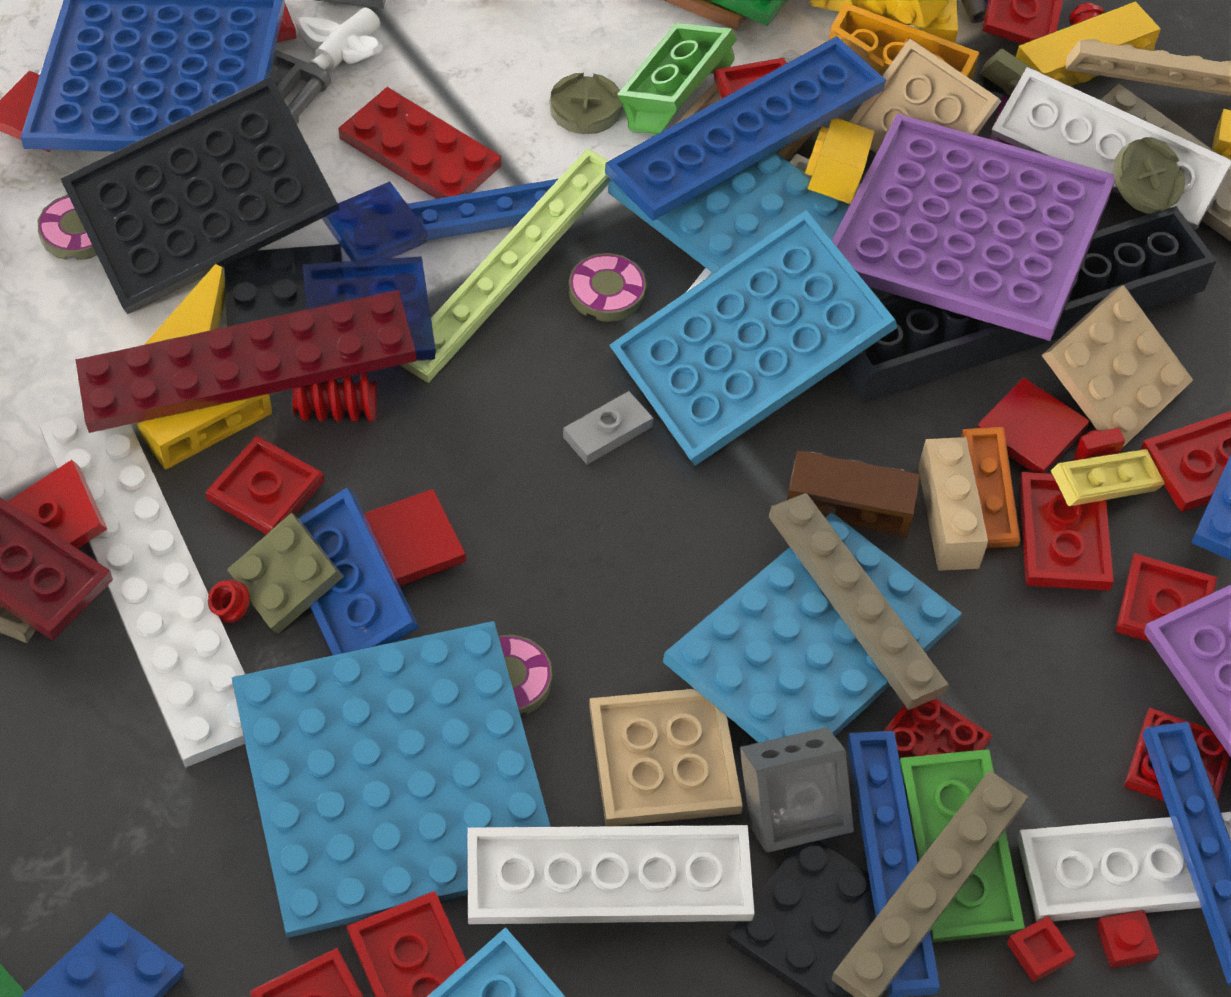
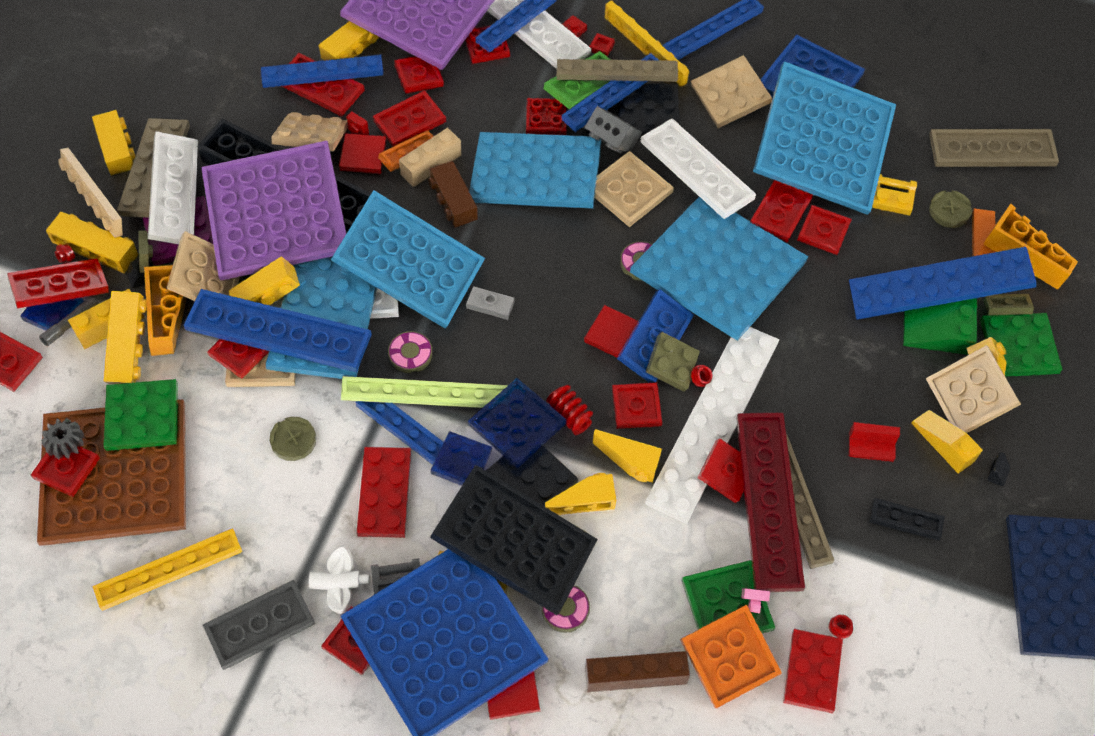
camera: 125 degrees left, 5 degrees up
(244, 361) = (593, 443): dark red plate -> none
(674, 73) = (252, 397): bright green slope -> none
(858, 601) = (510, 159): dark tan plate -> none
(1107, 477) = (375, 111): light yellow tile -> none
(1149, 175) = (190, 156): olive tile -> none

